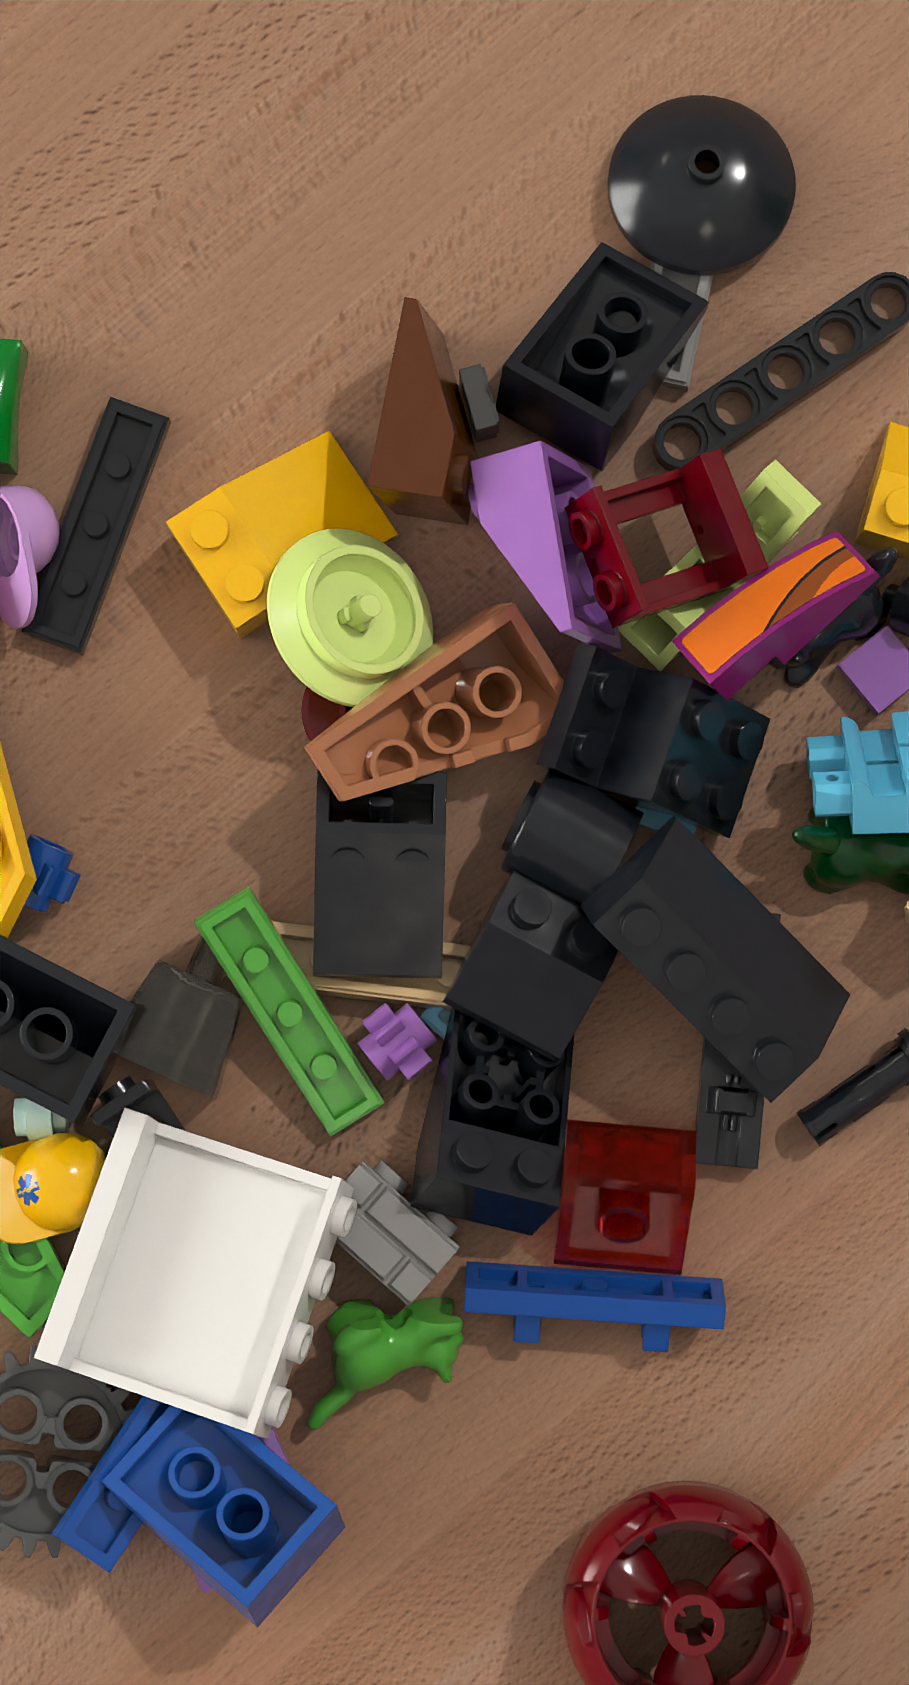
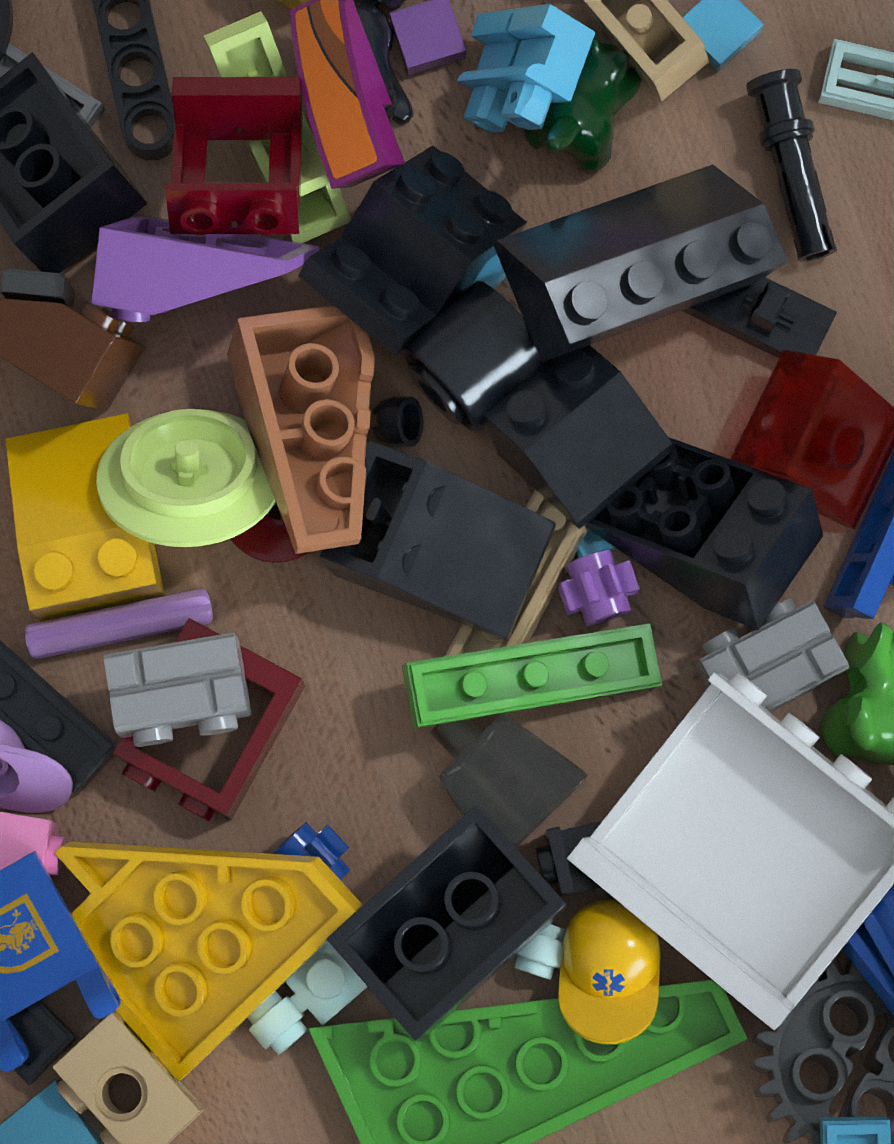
camera: 65 degrees left, 5 degrees down
(142, 687) = (177, 688): none -> light grey brick
(195, 607) = (117, 623): none -> lavender axle
(197, 738) = (196, 797): none -> dark red window
(487, 792) = (398, 421): none -> black hinge

